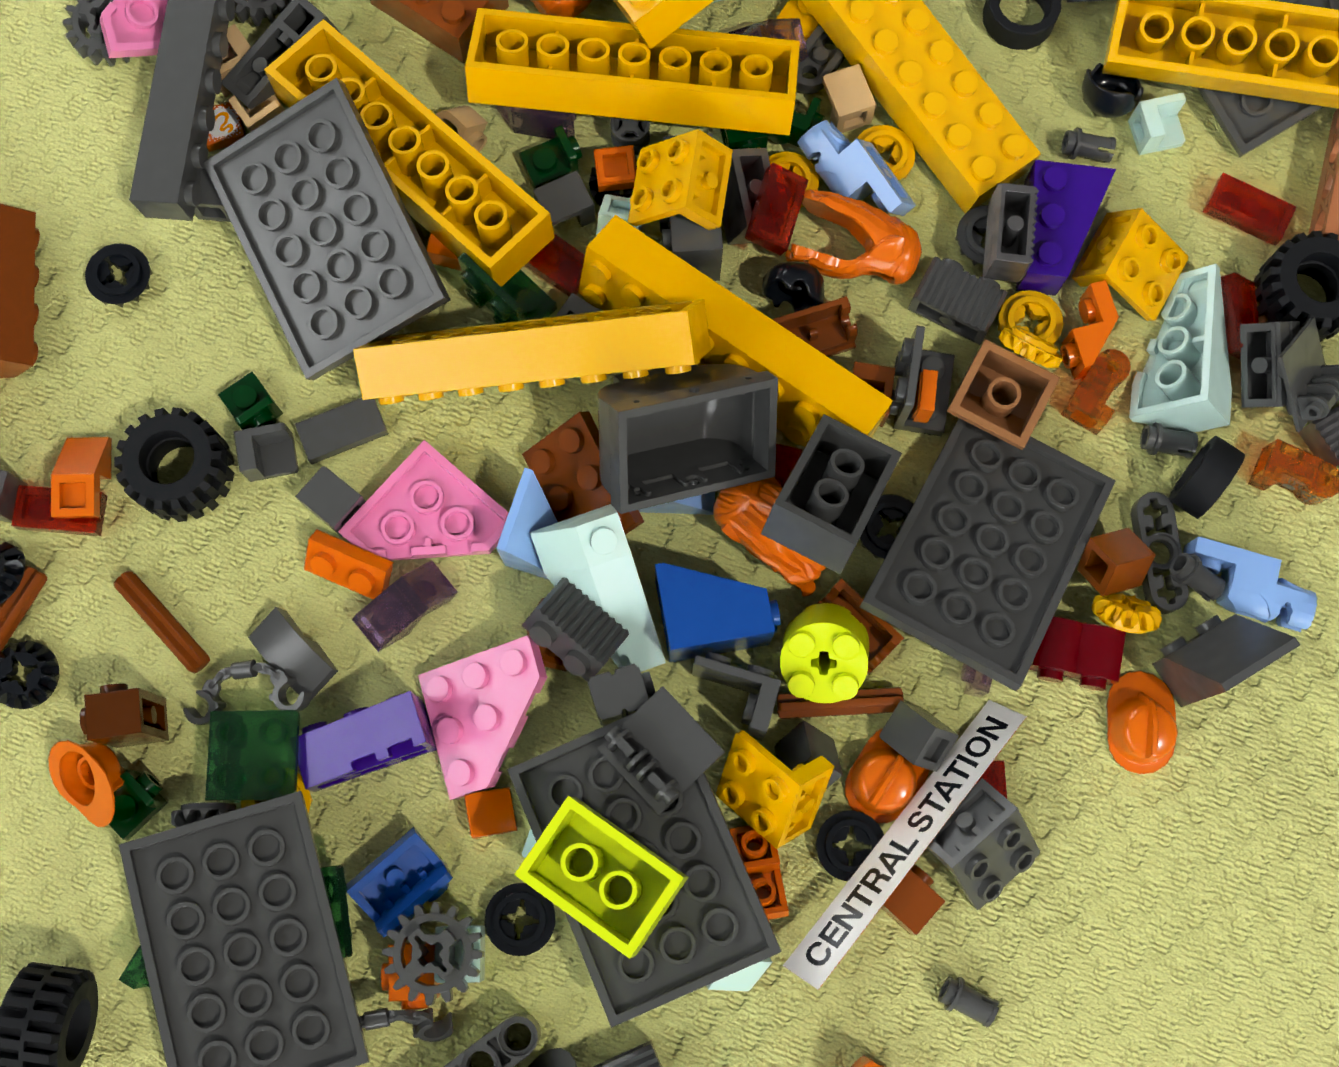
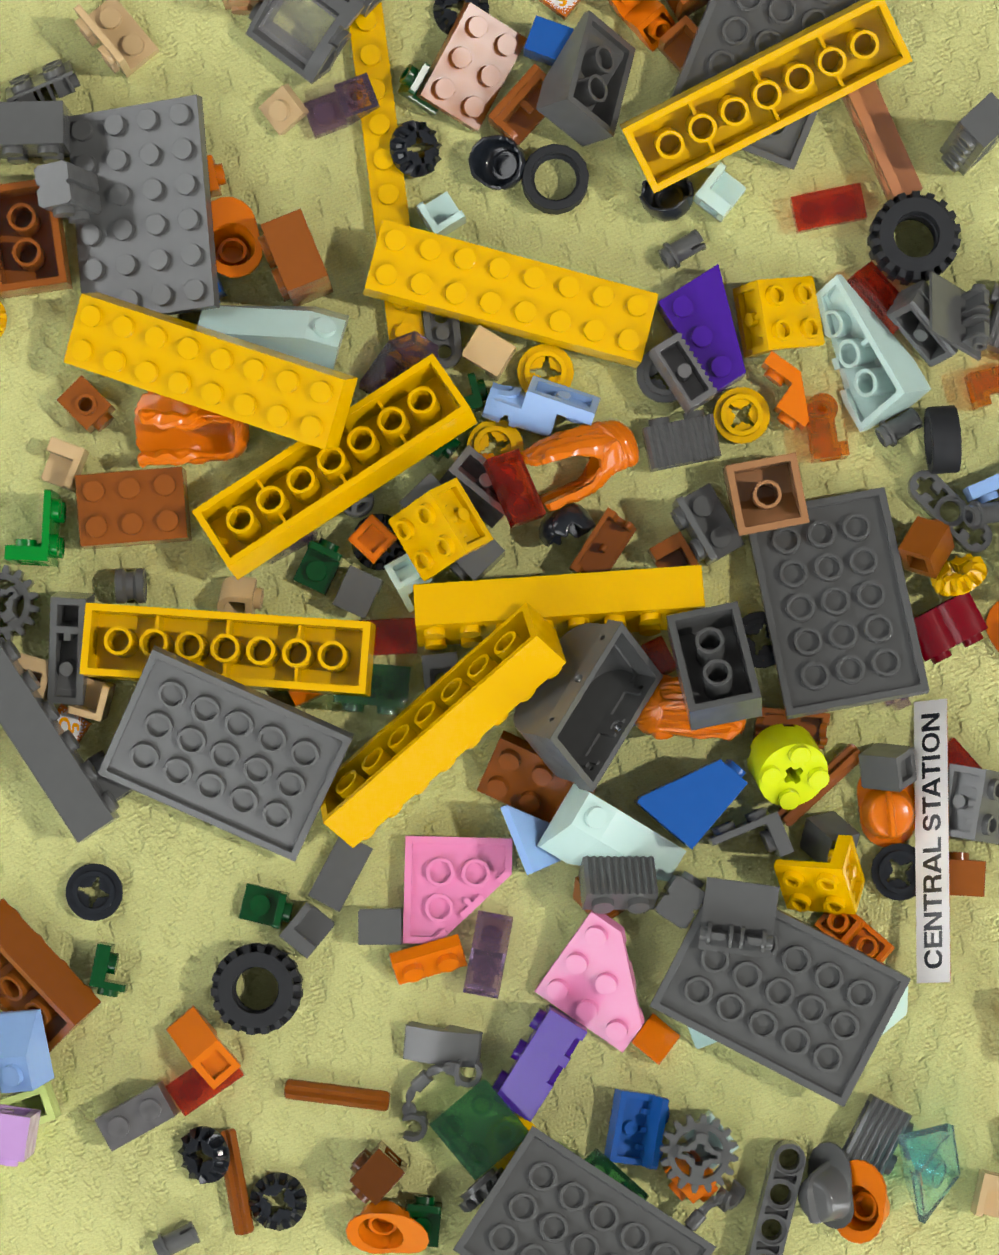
camera: 35 degrees left, 10 degrees up
(62, 340) = (105, 964): none -> dark green bracket
(379, 49) = (130, 585): none -> dark grey wheel
(503, 932) = (746, 1090): black gear -> none
(601, 876) = (767, 1024): neon yellow brick -> none
(925, 396) = (715, 536): orange tile -> none
(1031, 347) = (759, 443): yellow gear -> none

